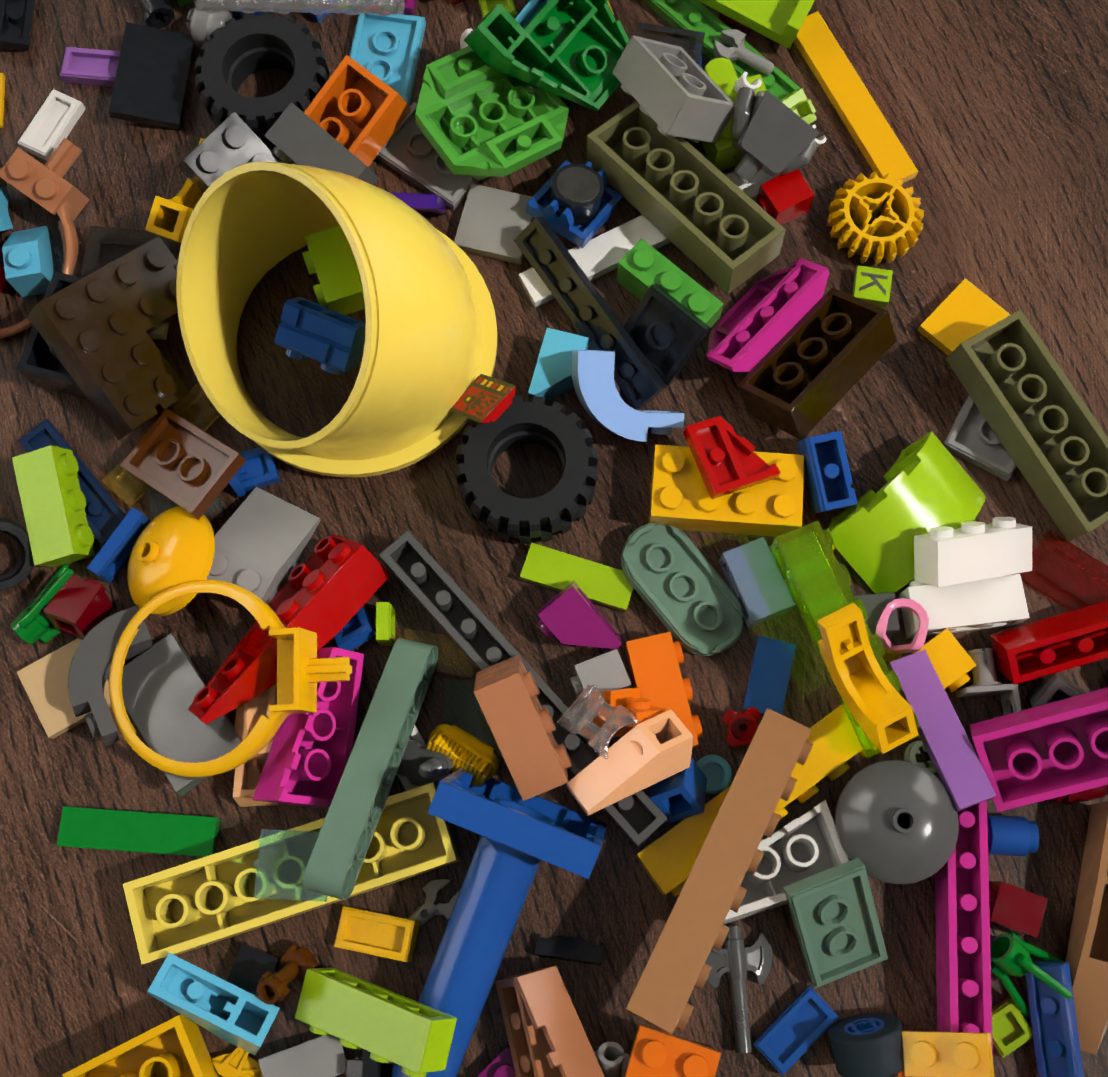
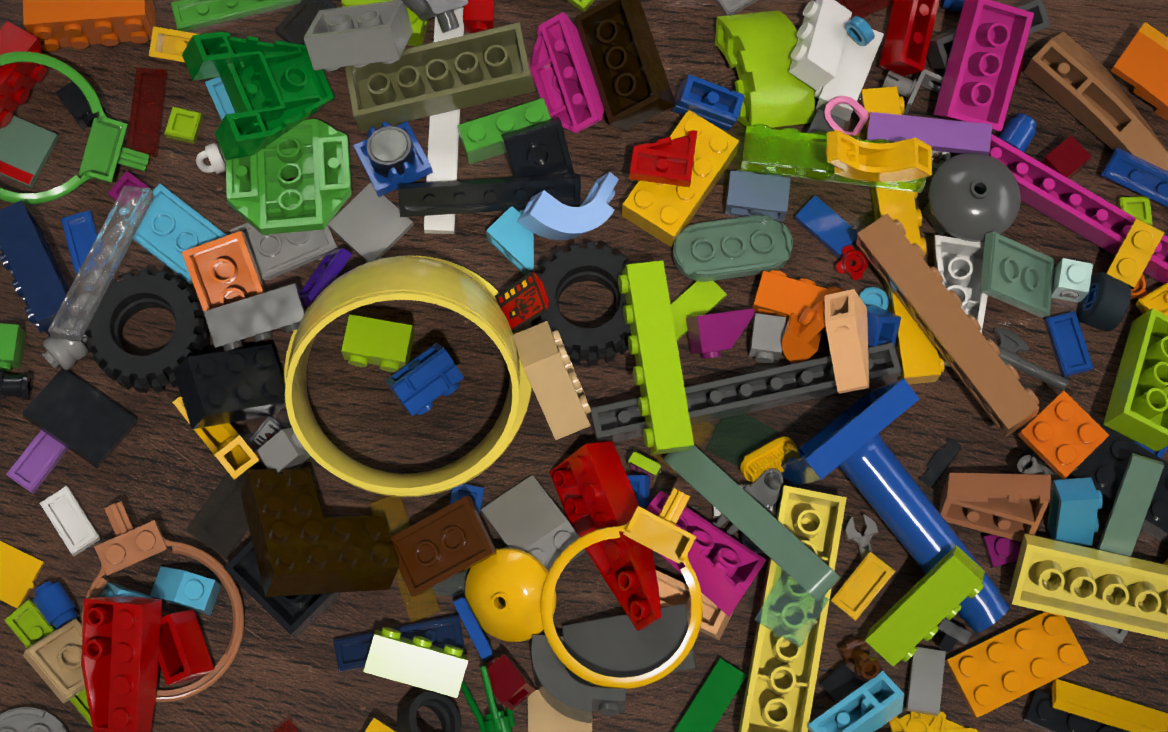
camera: 65 degrees left, 0 degrees up
(411, 471) = (553, 379): none -> tan brick
(493, 564) = (656, 358): none -> lime brick
(521, 727) = (781, 399): nougat wedge -> none
(585, 708) = (791, 353): clear piece -> none
(872, 992) = (1071, 280): none -> light aqua brick
(1012, 587) = (859, 31): none -> dark azure tile
(1012, 957) = (1097, 178): green plant -> none

